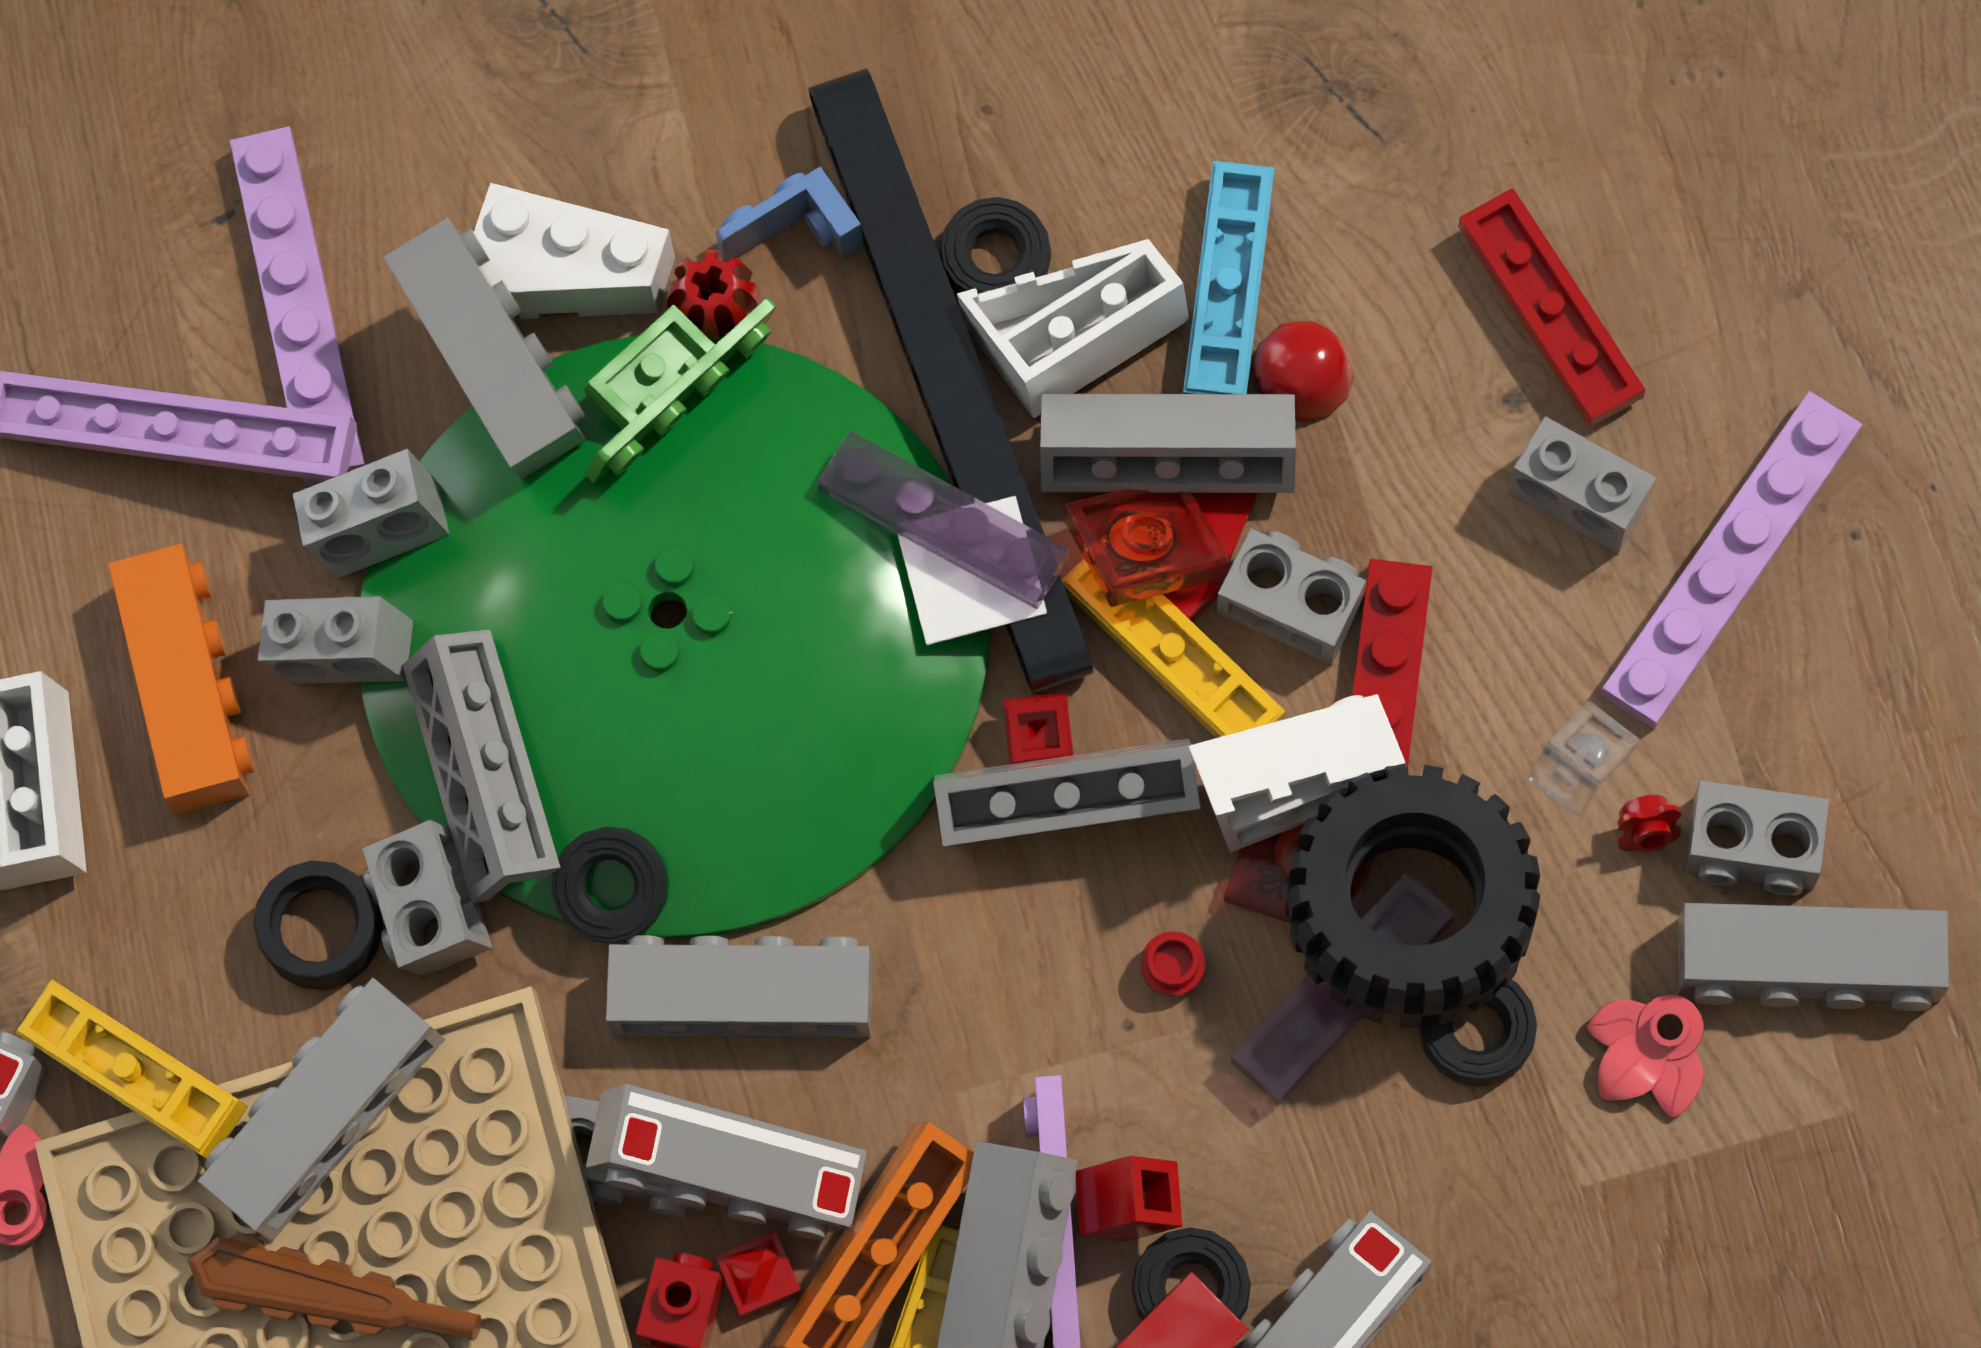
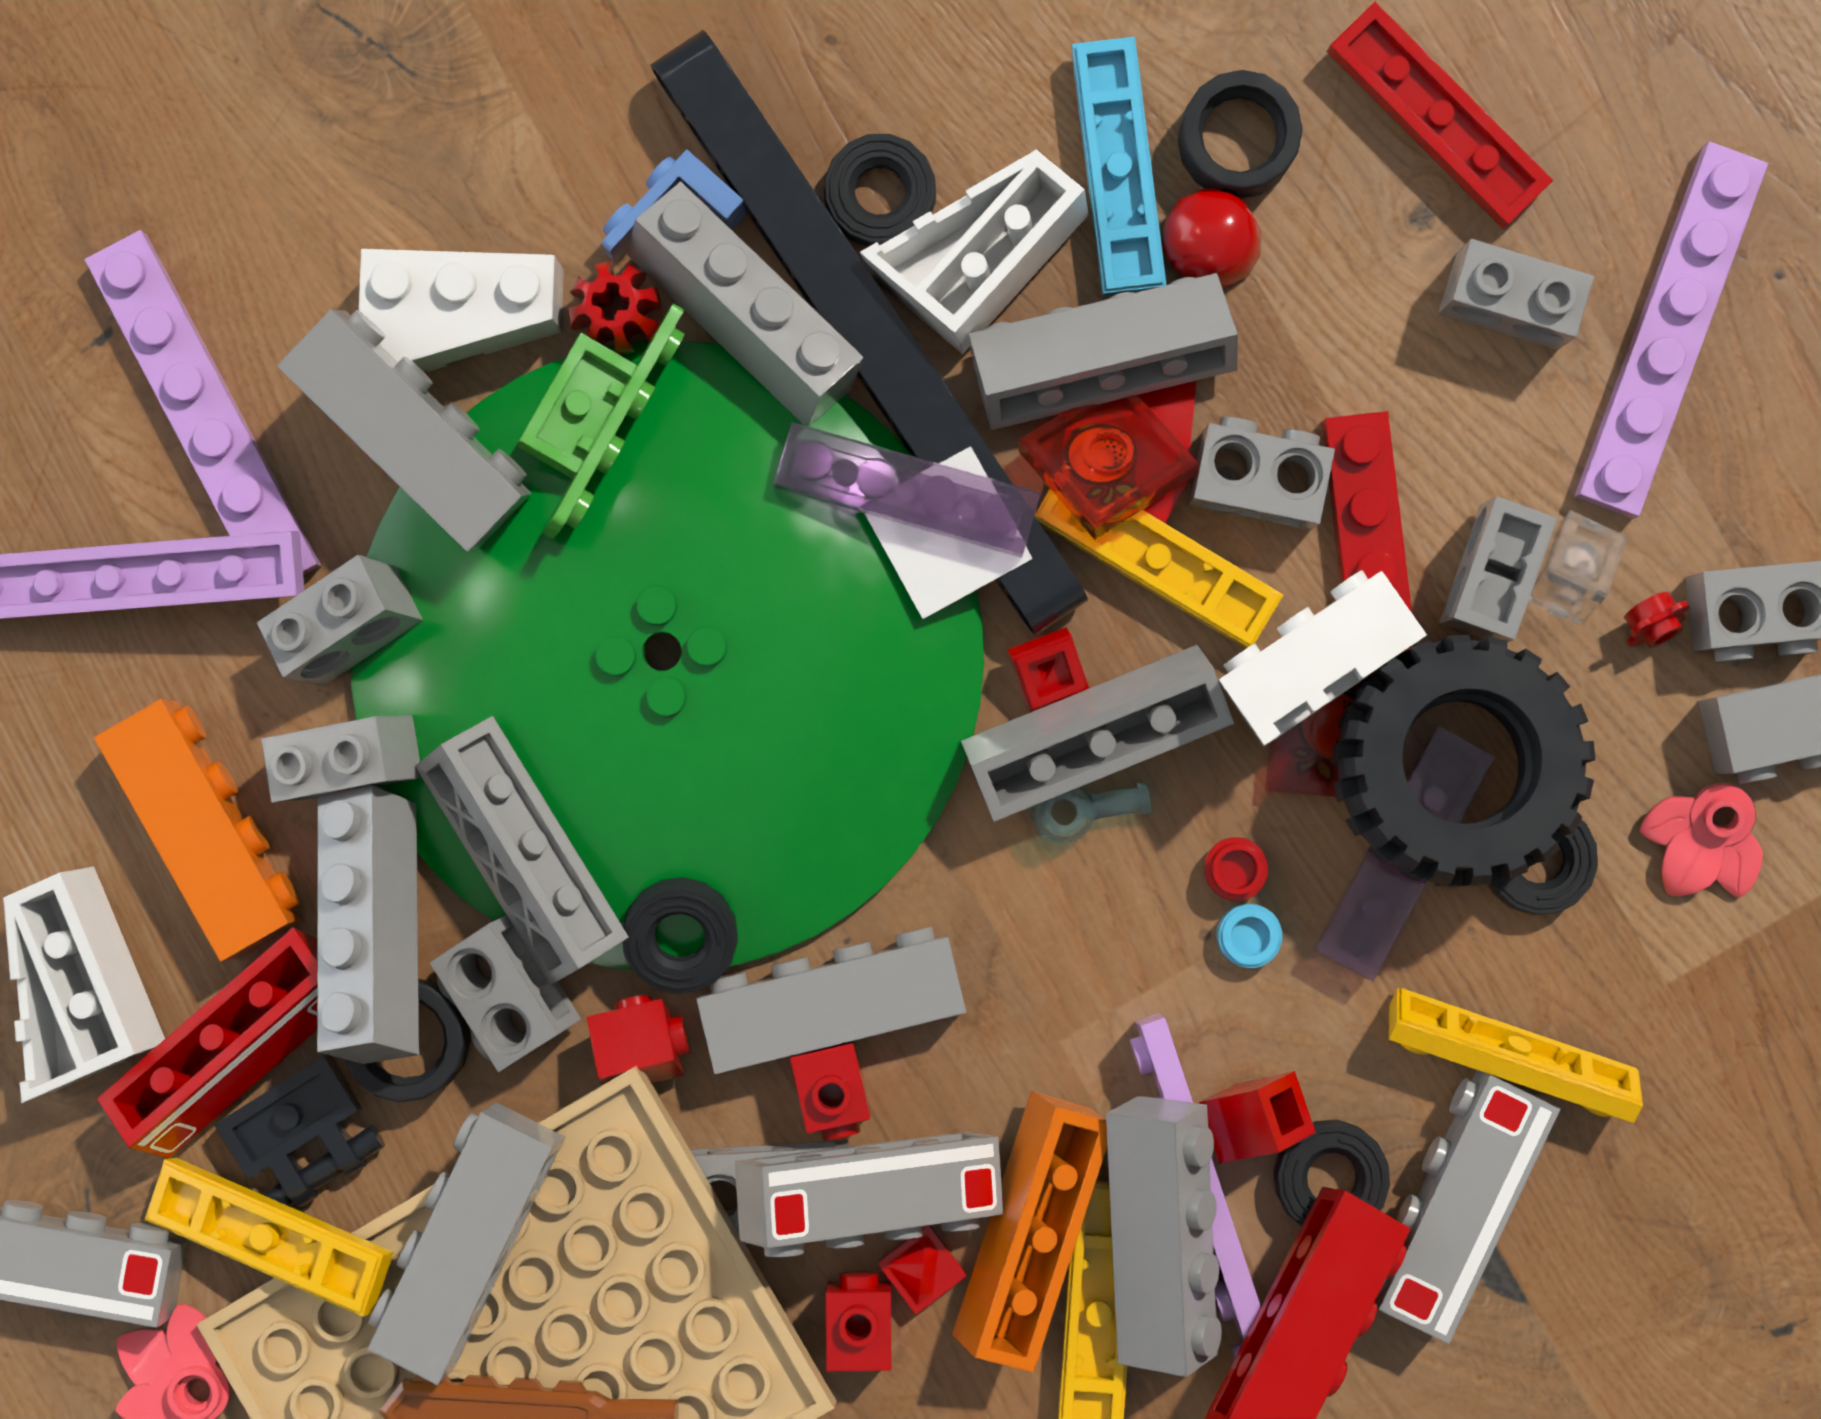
camera: 25 degrees left, 15 degrees up
(148, 881) = (219, 1050): none -> red brick
(183, 972) = (291, 1116): none -> black plate
(314, 794) = (367, 926): none -> light grey brick
(552, 970) = (639, 1035): none -> red brick
(717, 1066) = (831, 1090): none -> red brick
(836, 319) = (744, 304): none -> light grey brick
(1039, 872) = (1088, 809): none -> clear light blue bar
(1170, 1033) = (1249, 935): none -> medium azure tile
(1327, 1160) = (1515, 1055): none -> yellow plate
(1354, 235) = (1251, 87): none -> black tyre
(1501, 728) = (1498, 570): none -> light grey brick

